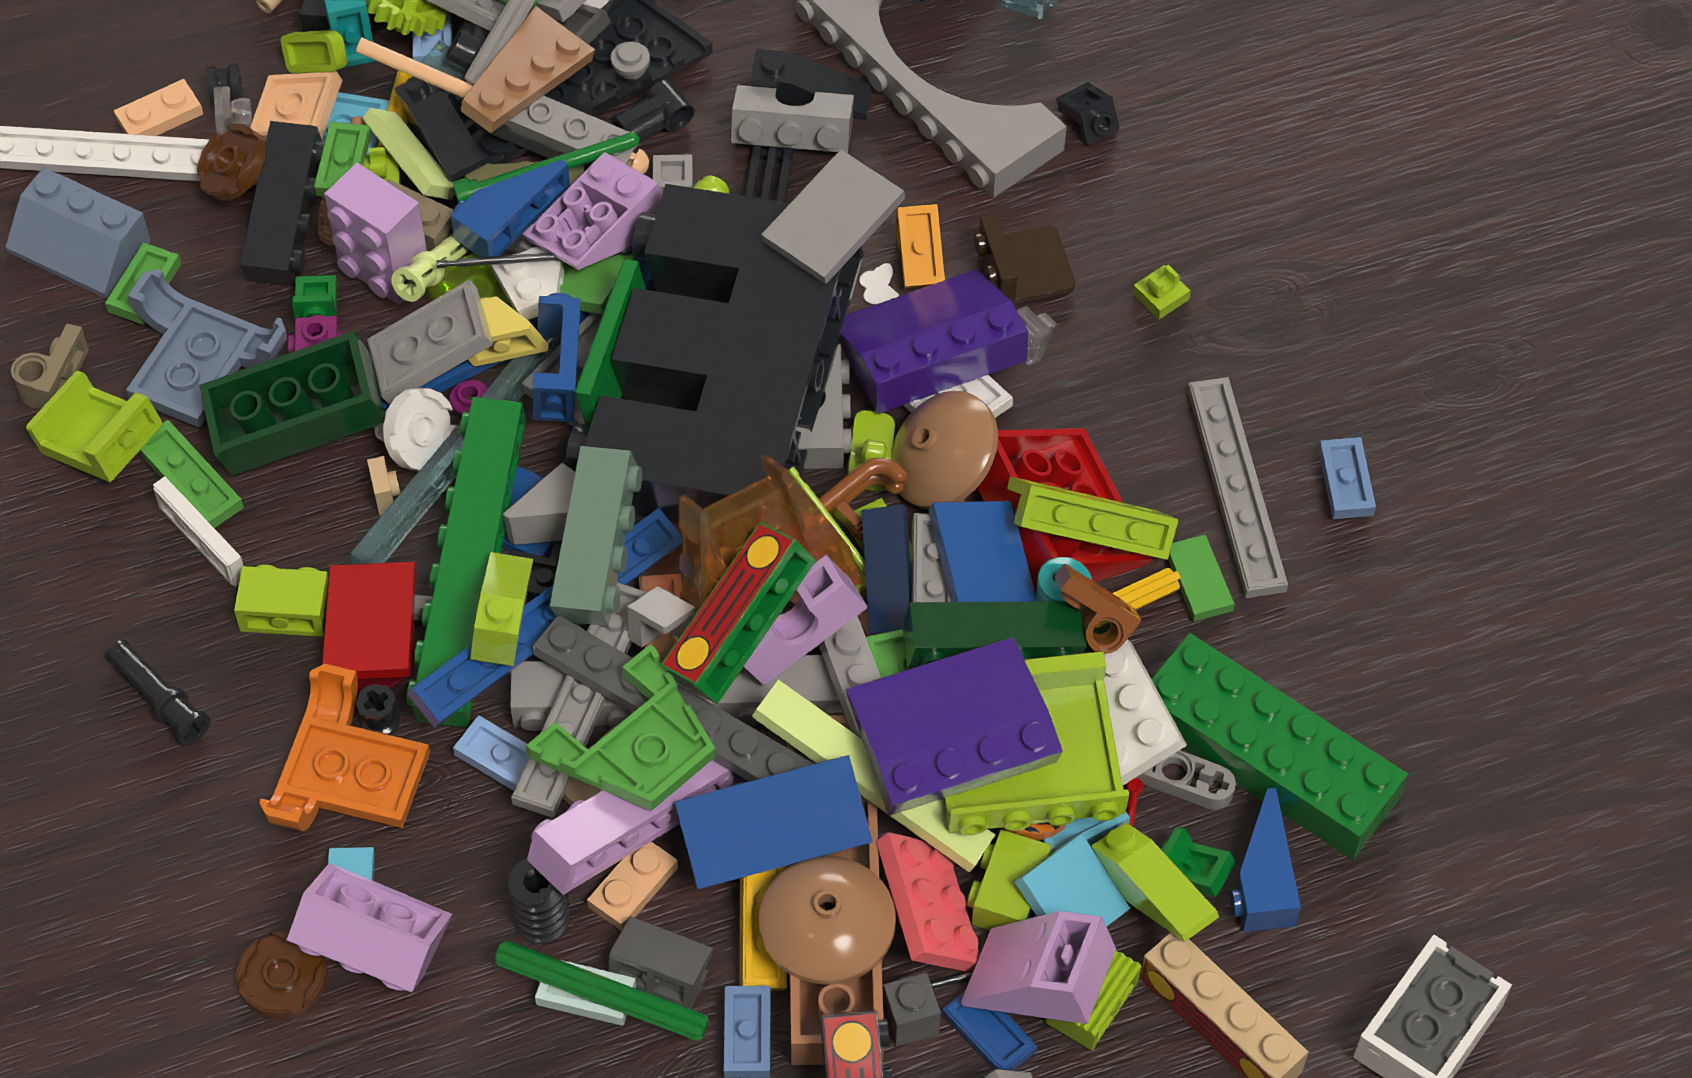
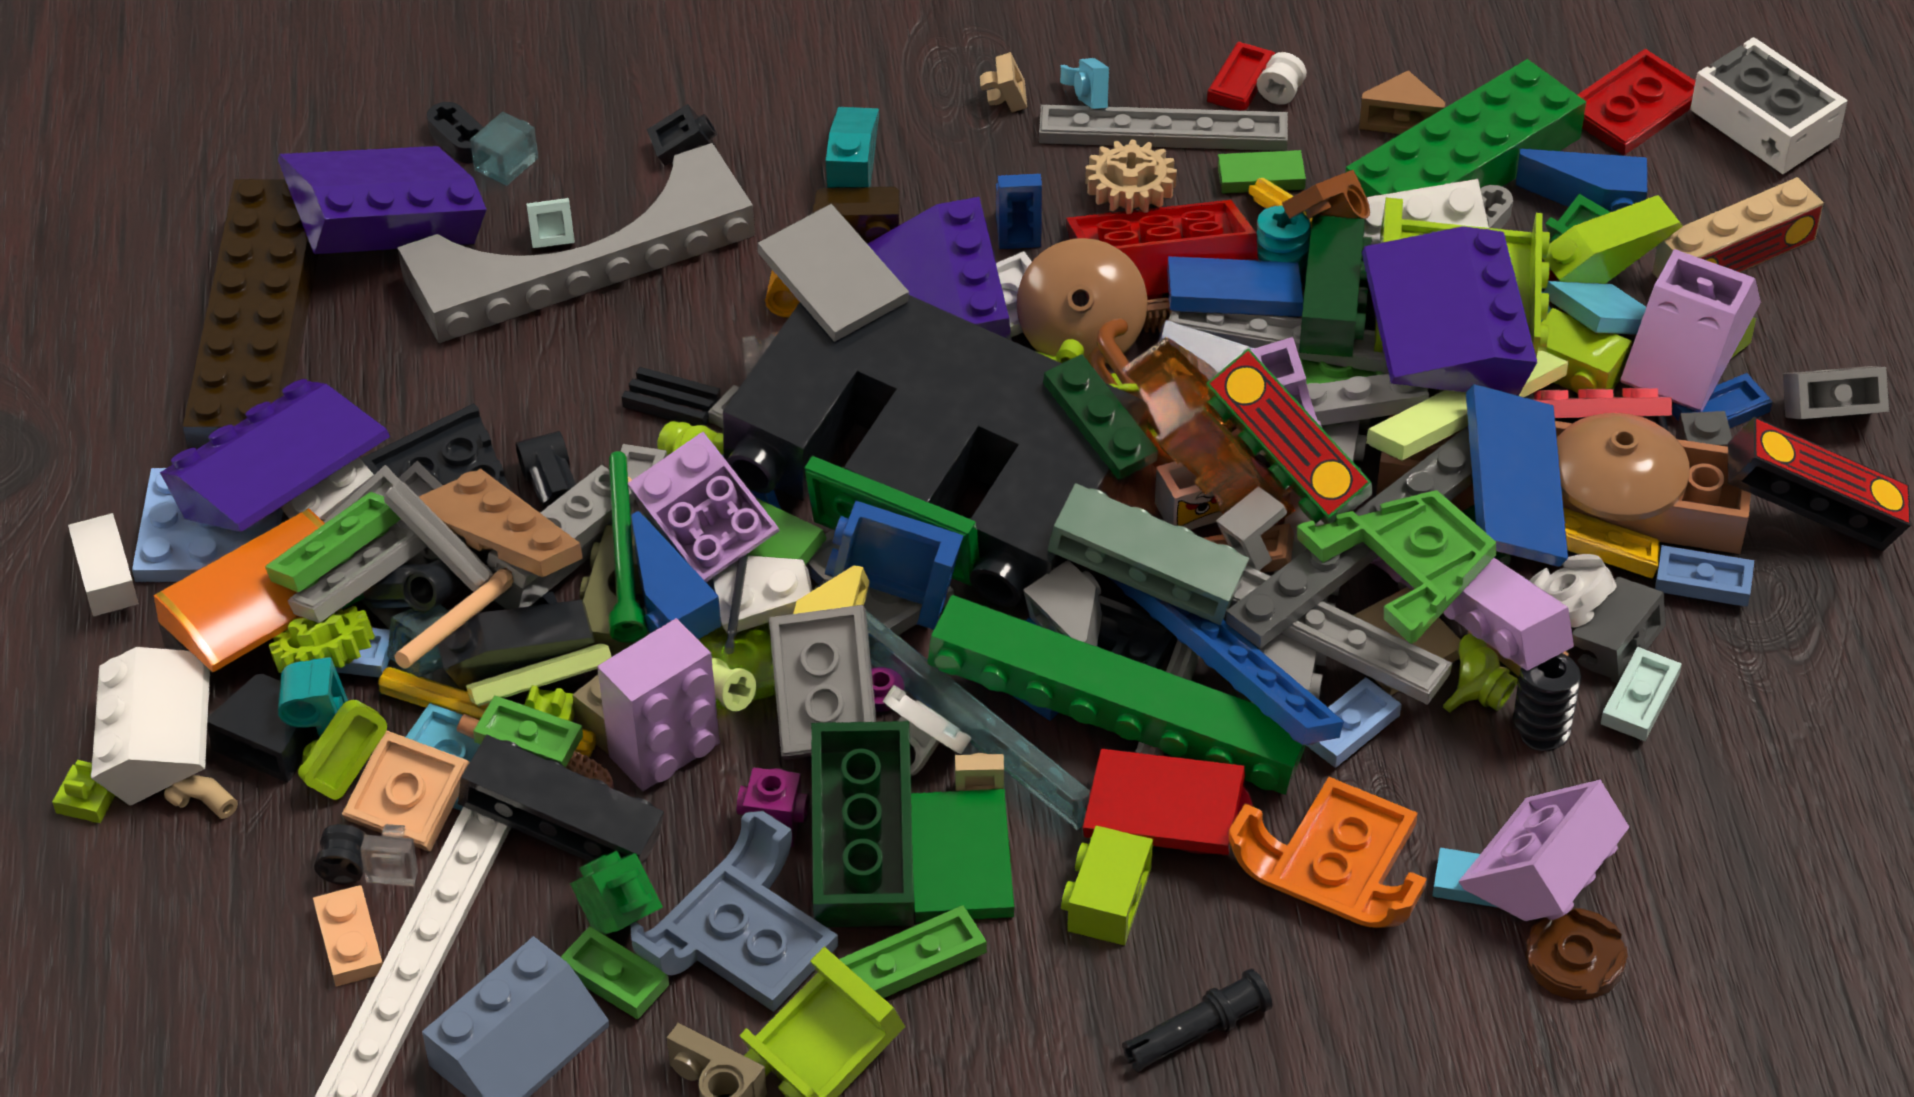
camera: 75 degrees left, 10 degrees down
(191, 254) = (615, 892): none -> green brick
(198, 531) = (993, 953): white tile -> none
(231, 162) = (491, 838): reddish brown tile -> none
(306, 493) = (961, 854): none -> green tile
(315, 296) = (701, 805): green bracket -> none
(384, 702) = (1278, 809): black bush -> none
(501, 609) = (1221, 640): lime slope -> none
(602, 990) = (1653, 669): green axle -> none
(630, 59) = (476, 459): light grey plate -> none
(684, 909) = (1578, 585): none -> white plate
(739, 460) = (1100, 416): none -> dark green plate
(765, 121) = (599, 379): light grey arch -> none
(799, 78) = (561, 346): black slope -> none
(946, 42) = (550, 223): none -> light aqua tile
(1063, 380) = (1019, 211): none -> blue arch
(1093, 519) = (1201, 202): lime fence -> none
(1117, 238) = (852, 147): none -> teal slope
(1145, 465) = (1130, 176): none -> tan gear
(1161, 291) = (921, 131): lime tile -> none
(1243, 342) = (1007, 82): none -> tan tile
(1260, 405) = (1088, 81): none -> medium azure plate
(1326, 677) = (1398, 105): none -> medium nougat slope
(1331, 569) = (1281, 78): none -> white wheel
(1334, 539) = (1237, 79): none -> red tile
(1347, 478) = (1181, 49): medium blue plate -> none
(1419, 898) = (1636, 101): none -> red tile

